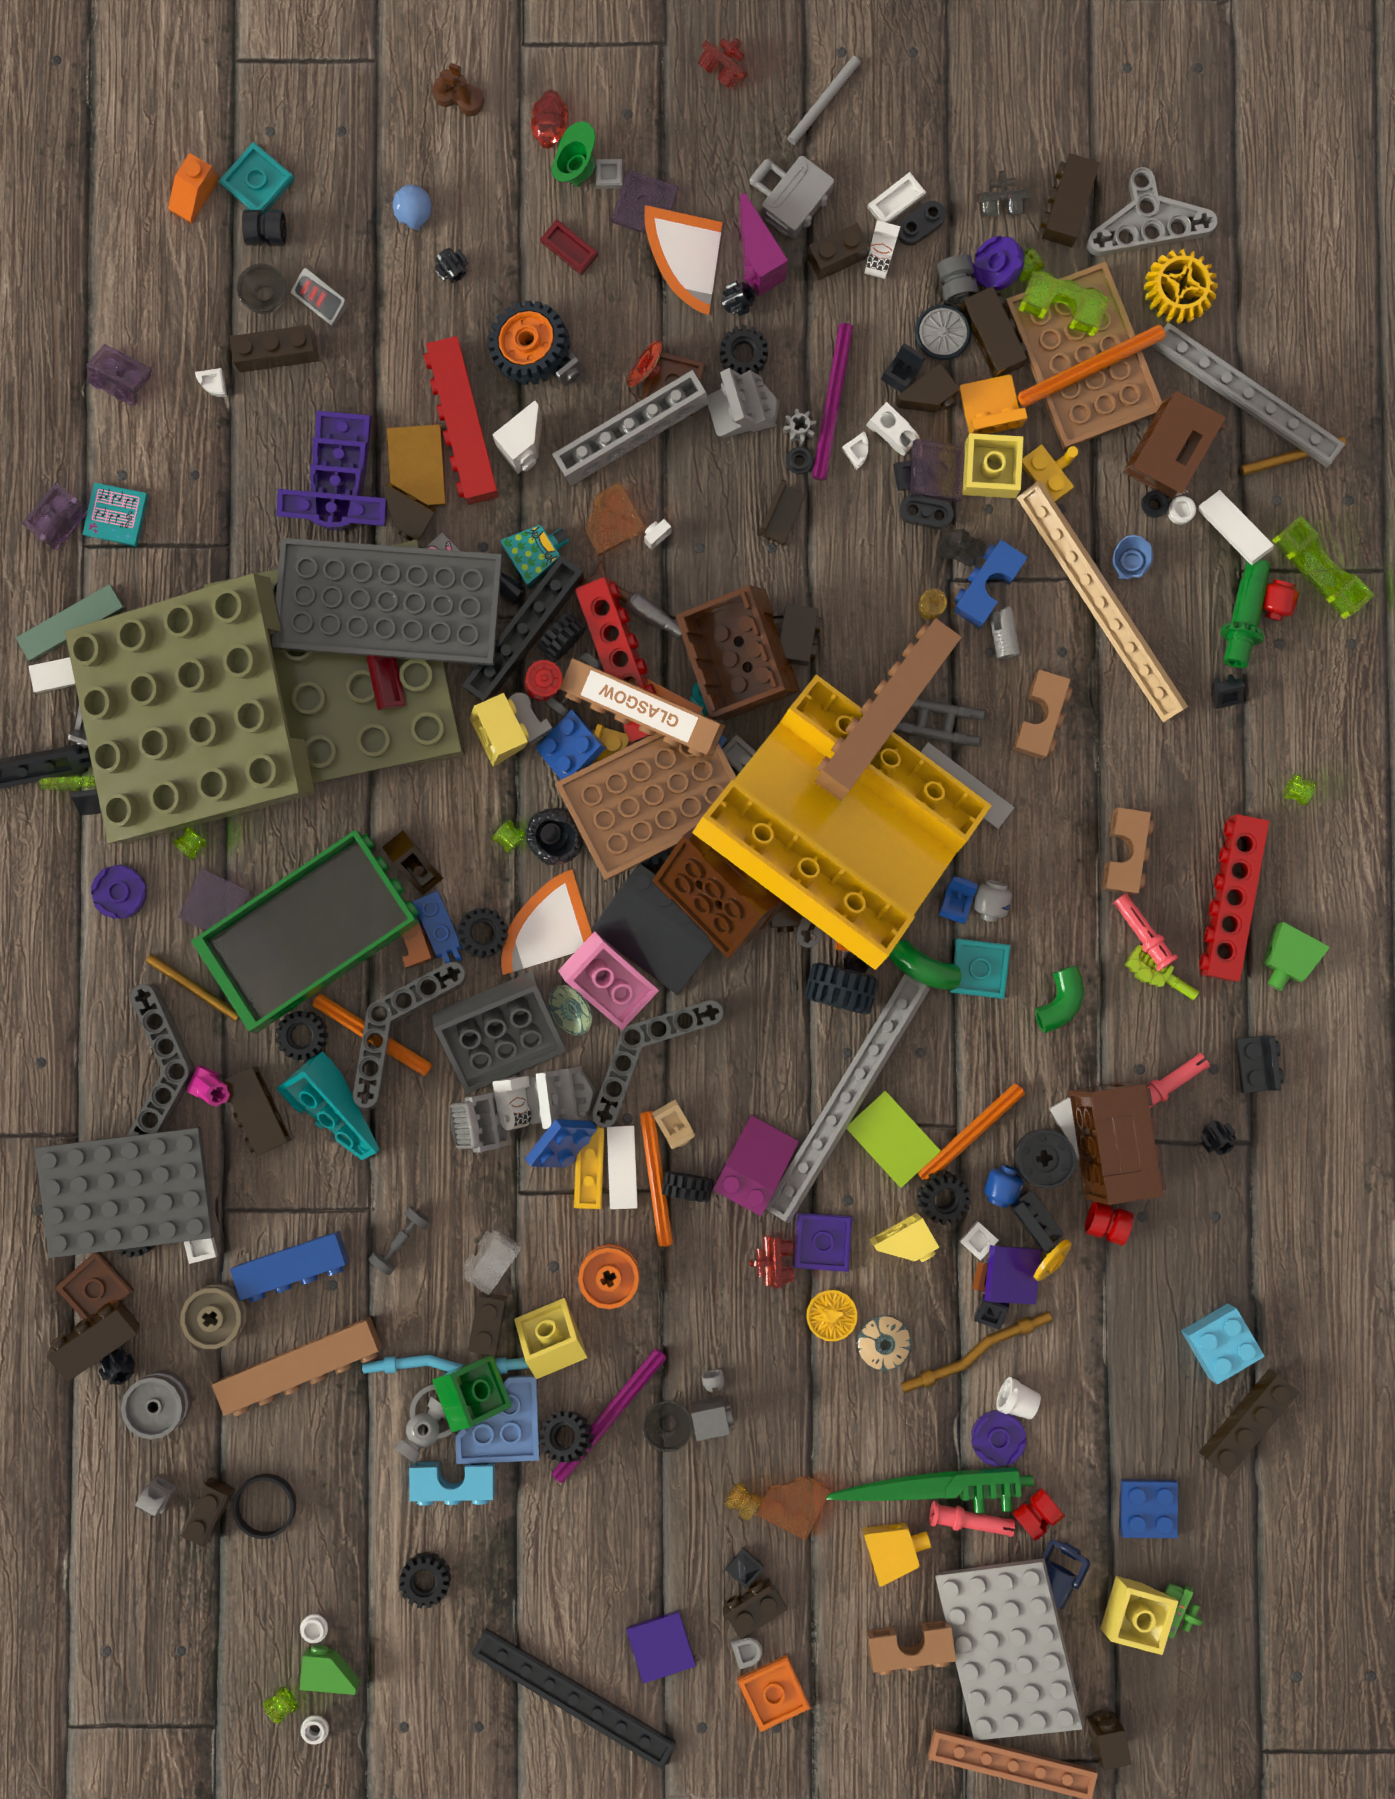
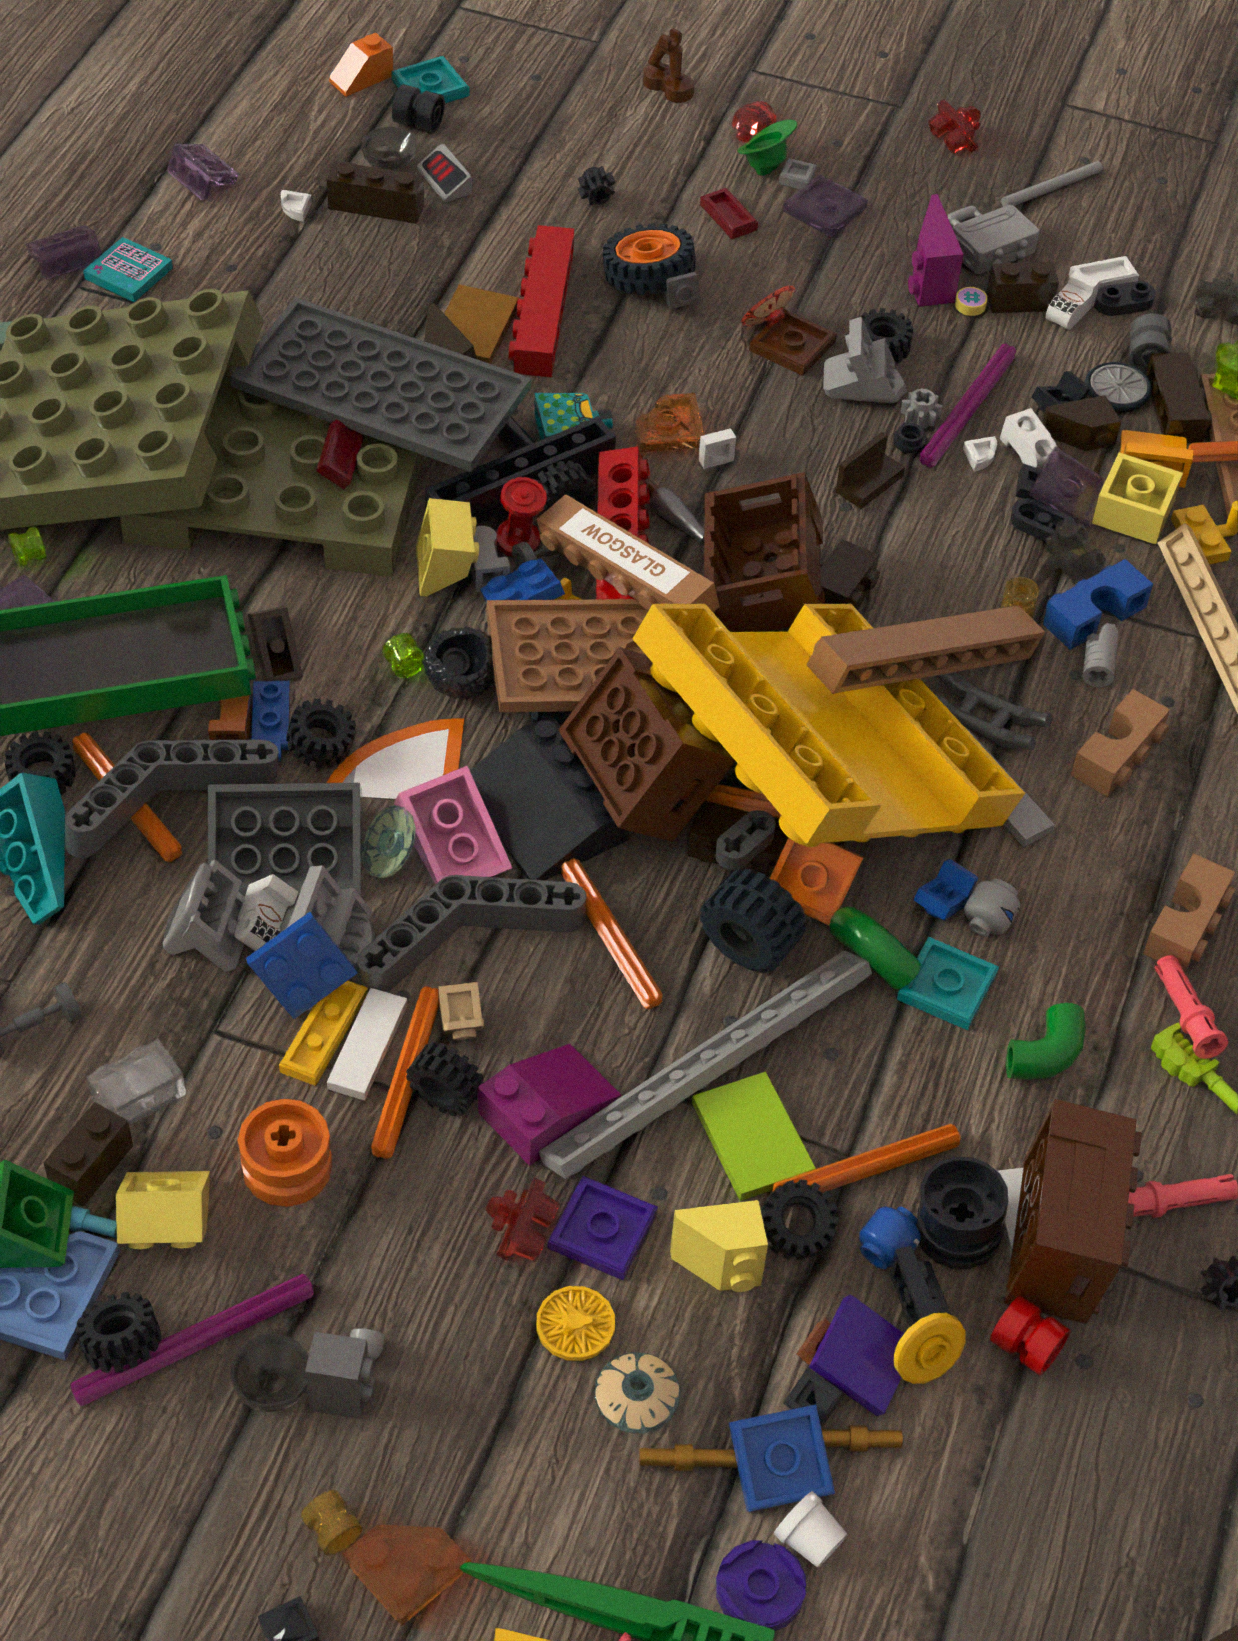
camera: 20 degrees right, 35 degrees down
(336, 477) = (389, 294): dark purple slope -> none
(412, 206) = (579, 136): medium blue hair -> none
(520, 438) = (602, 320): white slope -> none
(631, 428) = (728, 348): light grey brick -> none
(685, 253) = (852, 250): sticker -> none
(737, 298) = (895, 291): black gear -> none
(745, 1018) = (614, 937): none -> orange axle
(799, 277) = (971, 301): none -> tile
(978, 1240) = (825, 1295): white plate -> none
(986, 1360) = (781, 1457): none -> blue tile
(998, 262) = (1204, 340): dark purple tile -> none
(1222, 1343) = (1159, 1564): medium azure brick -> none

